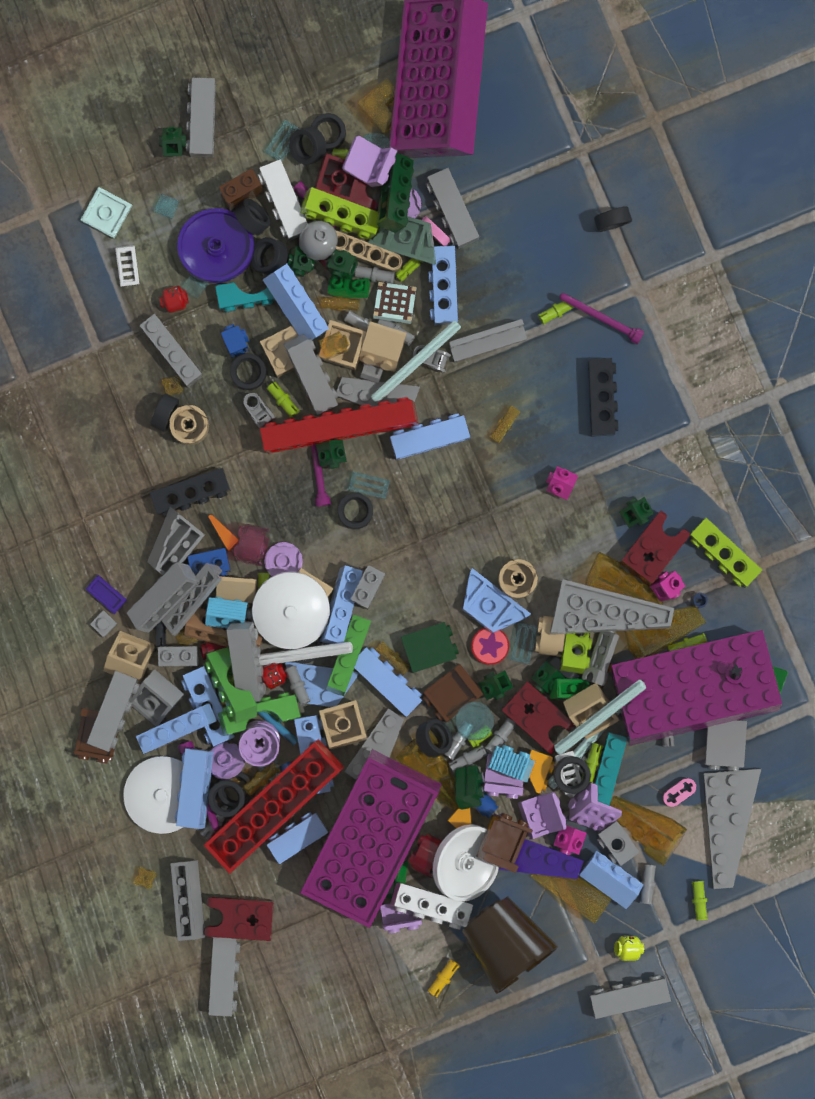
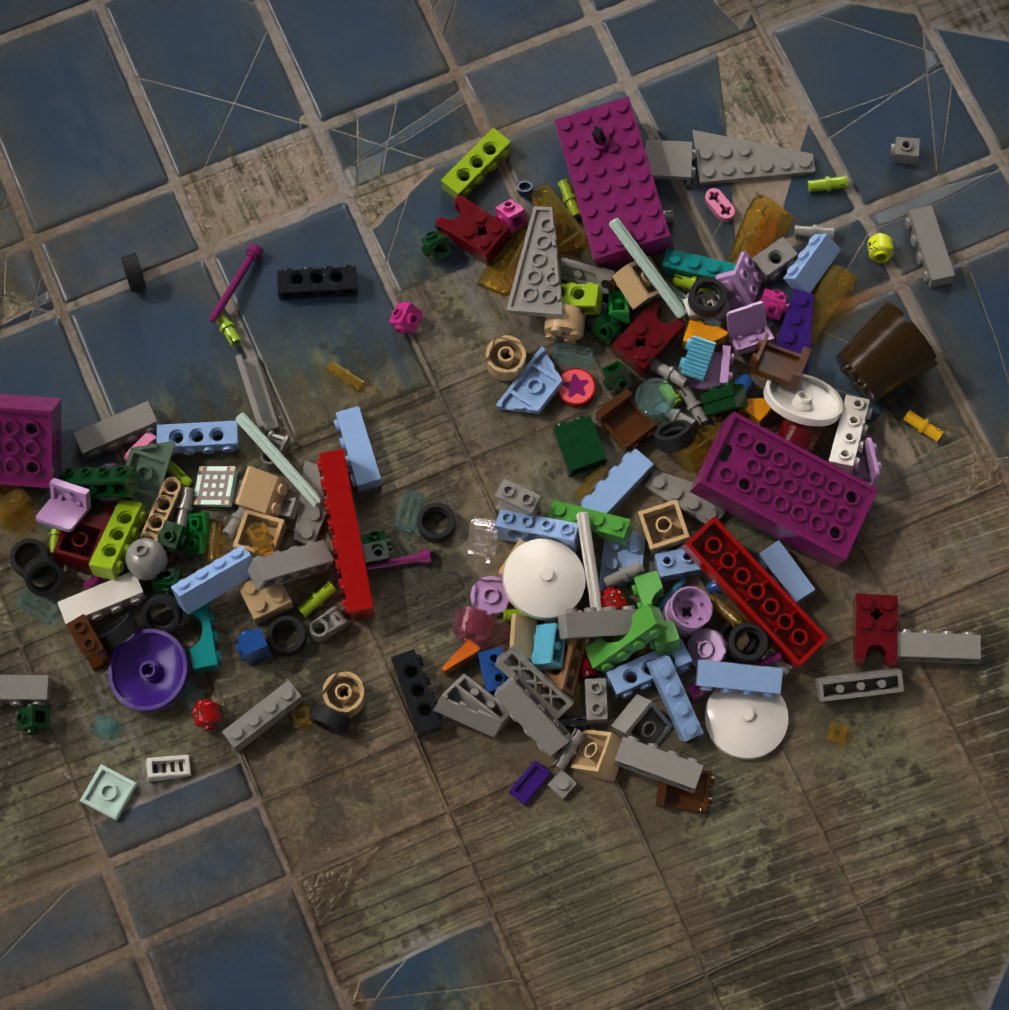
camera: 85 degrees left, 15 degrees down
(129, 627) = (569, 749): none -> light grey pin
(335, 554) = (481, 538): none -> clear bracket
(734, 980) = (905, 150): none -> light grey brick

